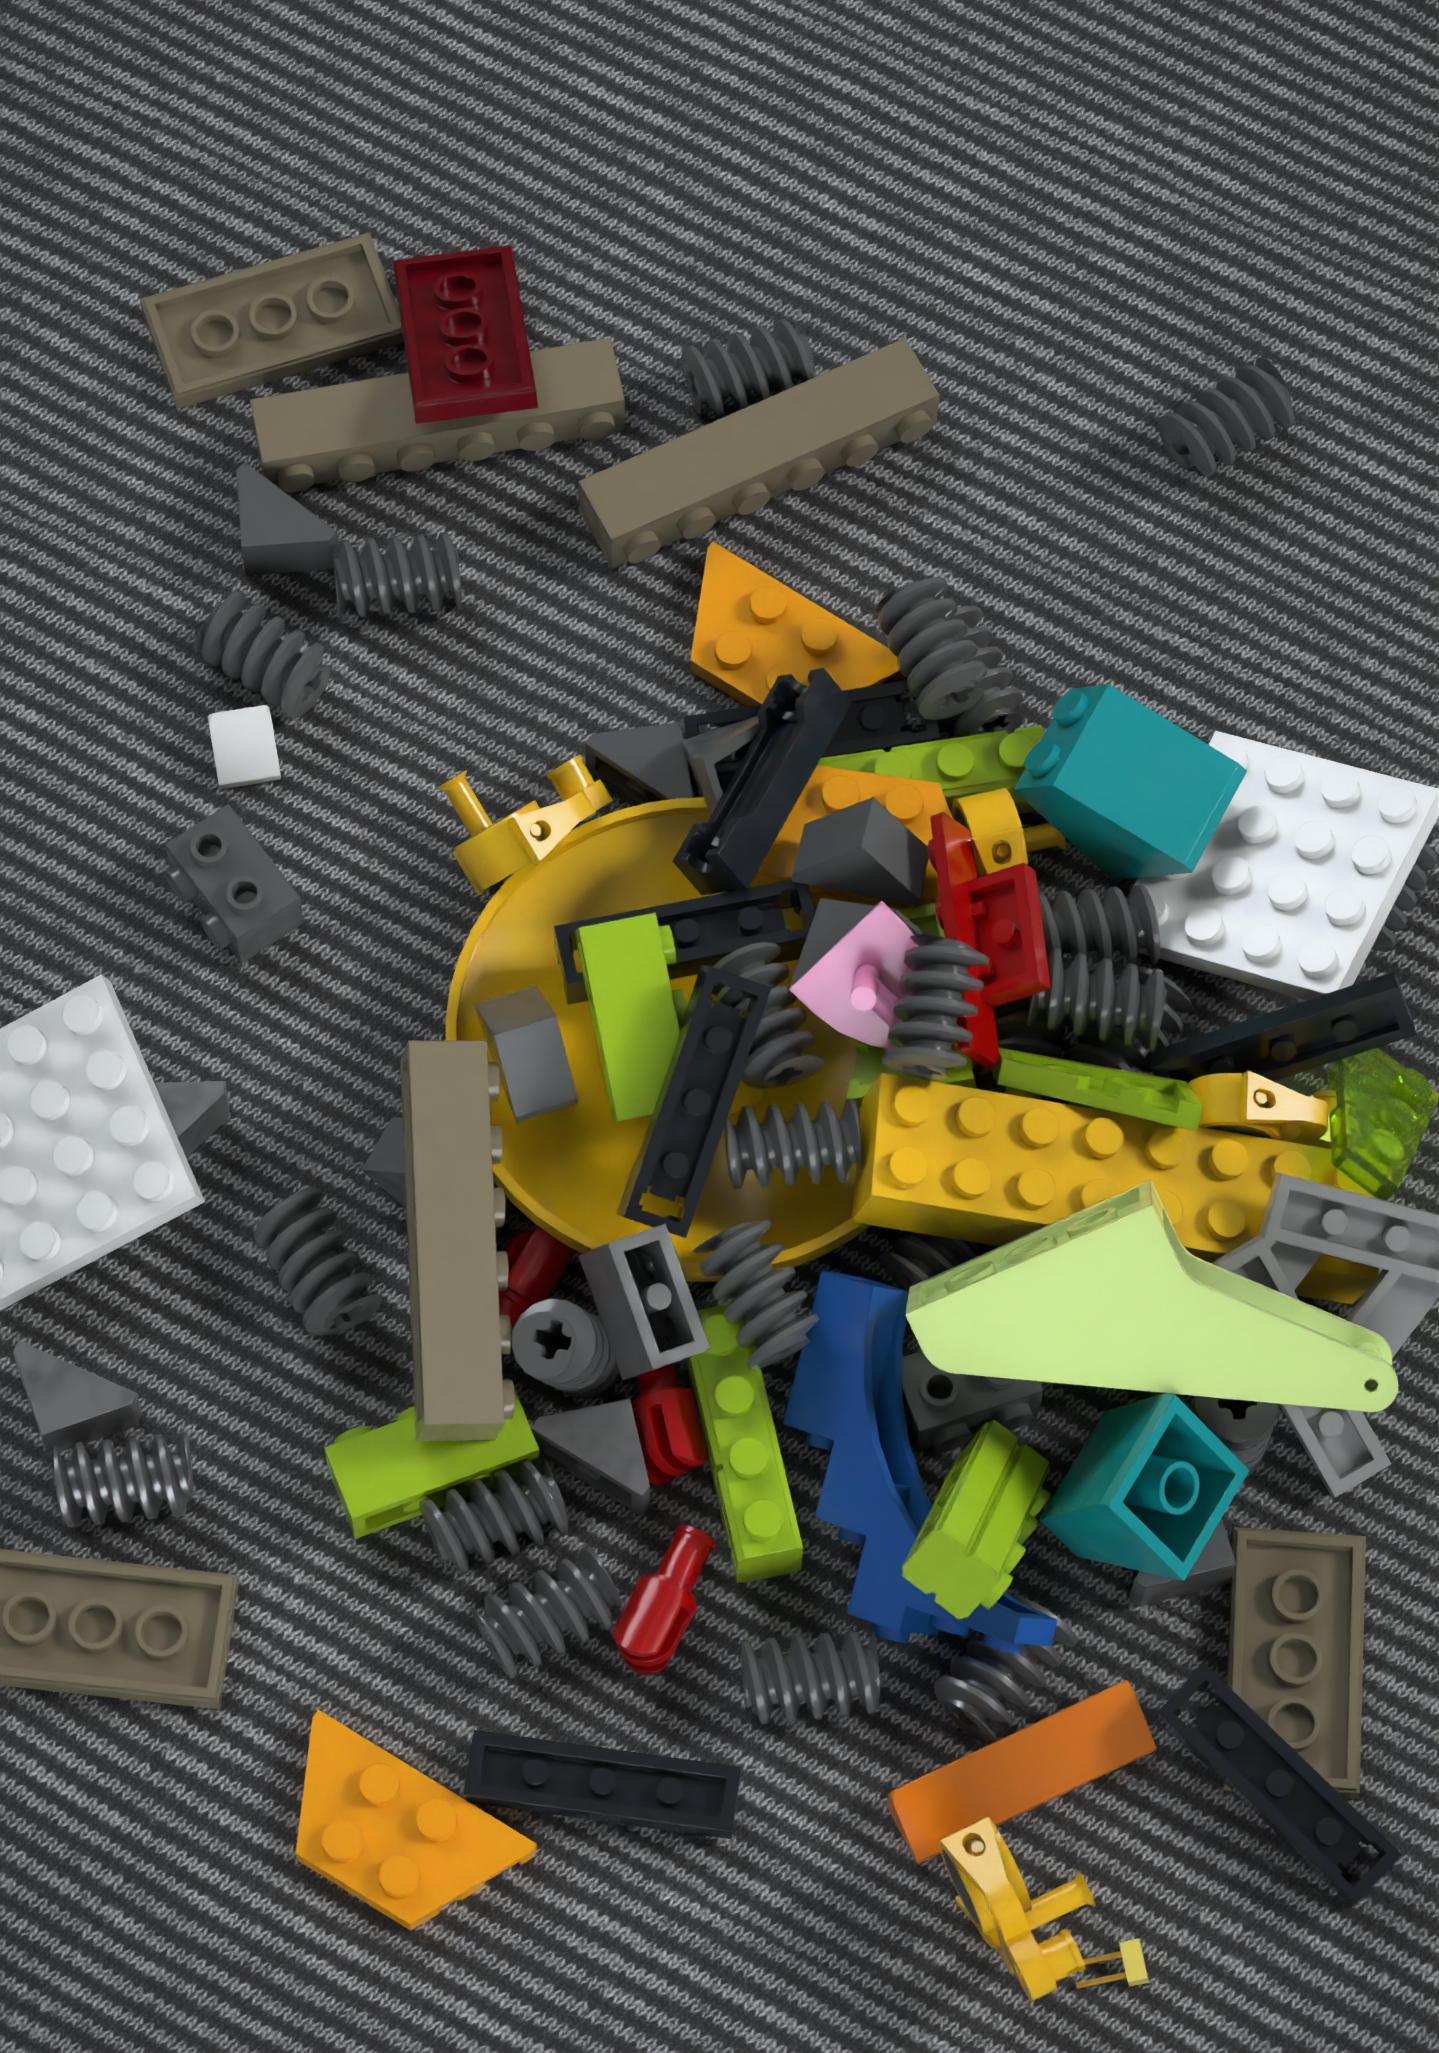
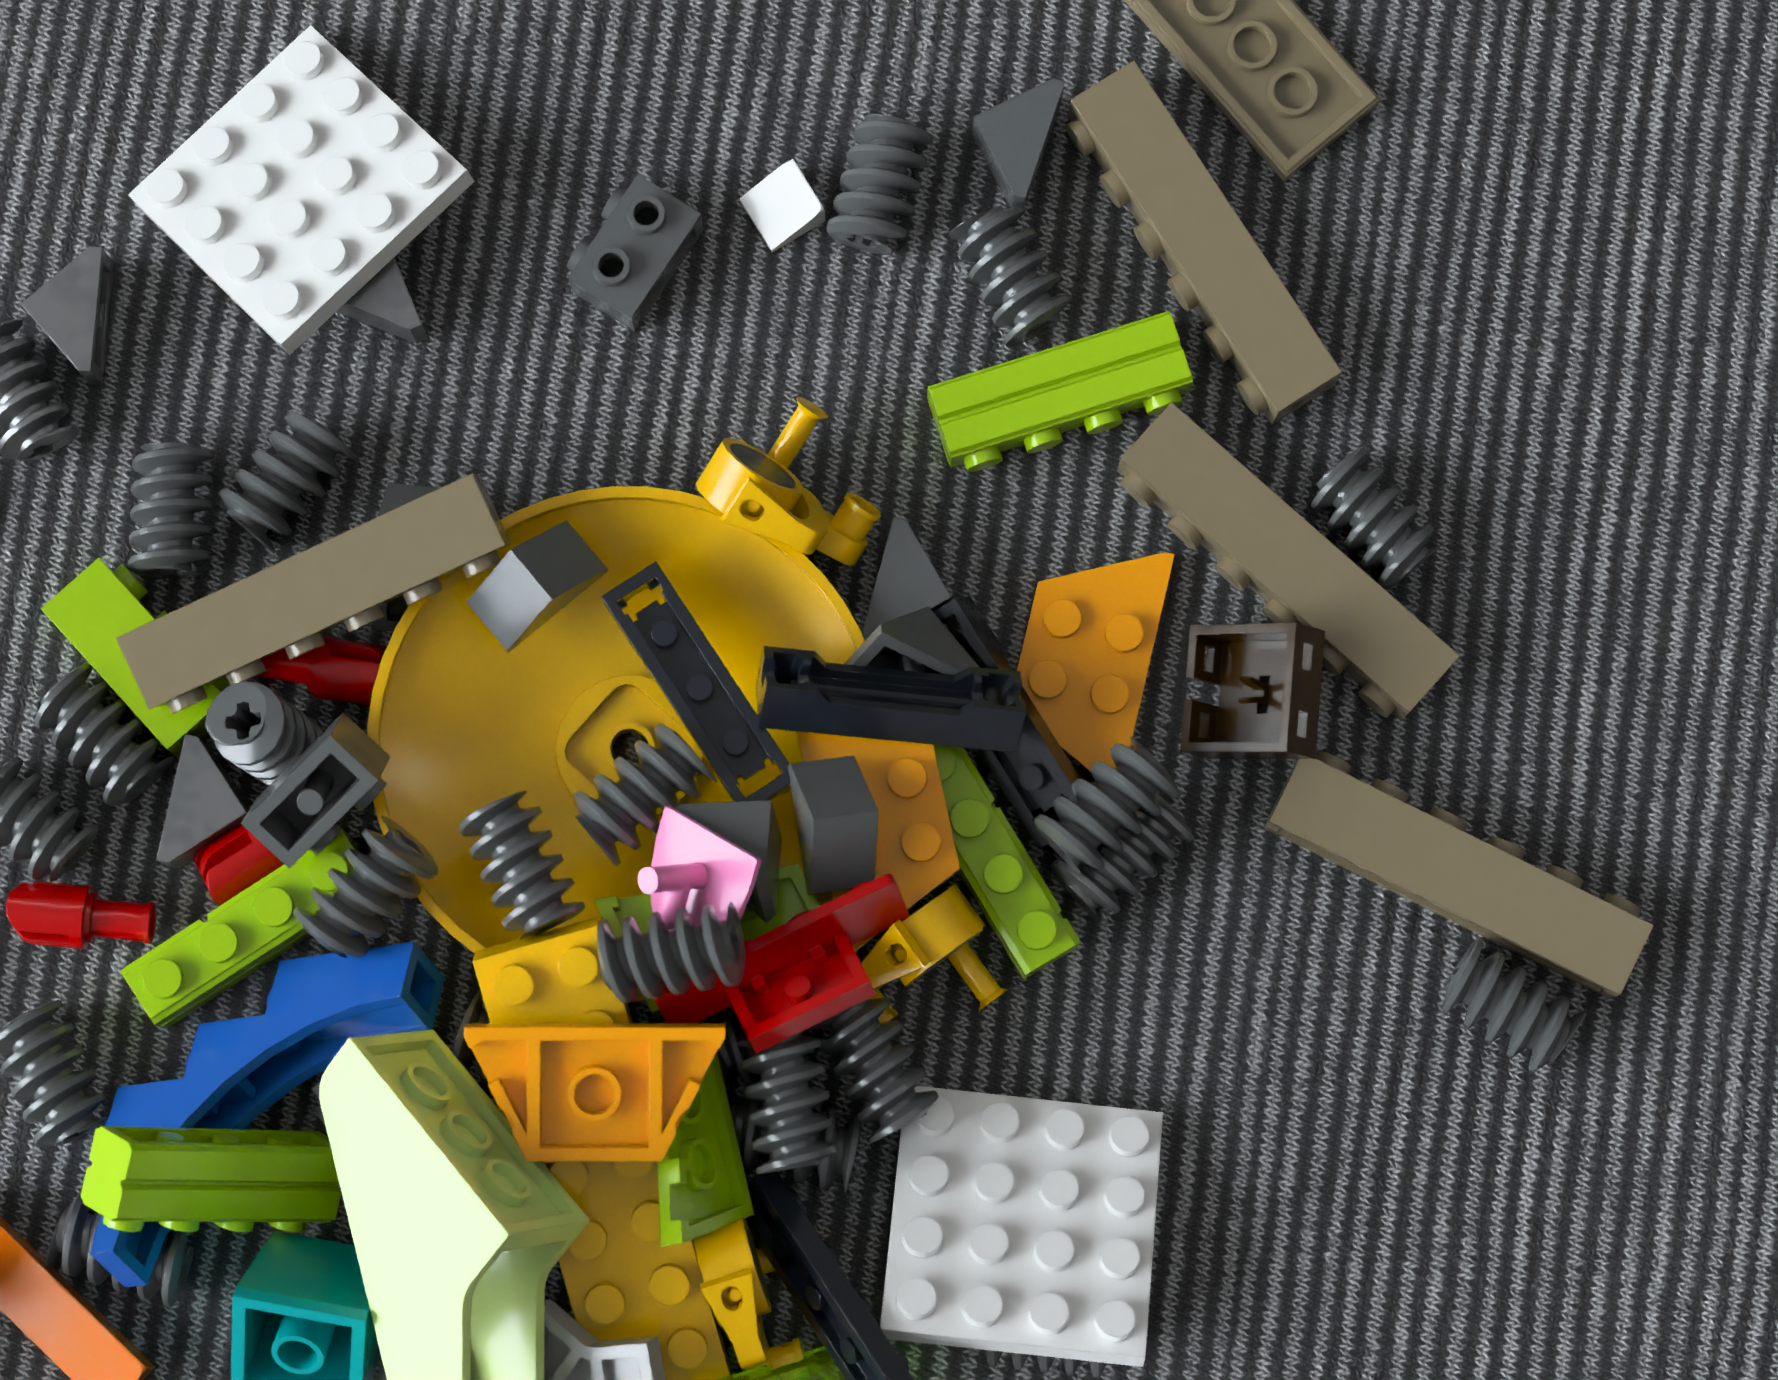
camera: 70 degrees right, 15 degrees up
(300, 1378) = (169, 510): none -> dark grey piece
(464, 334) = (1288, 232): dark red tile -> none
(523, 578) = (1060, 390): none -> lime brick
(632, 1008) = (585, 674): lime brick -> none
(694, 1100) = (514, 760): black piece -> none
(837, 523) = (1238, 661): none -> dark brown piece
(1029, 1128) = (594, 1086): none -> light orange wing
(1093, 420) = (1460, 875): none -> dark tan brick
(1127, 784) = (1043, 1050): teal slope -> none

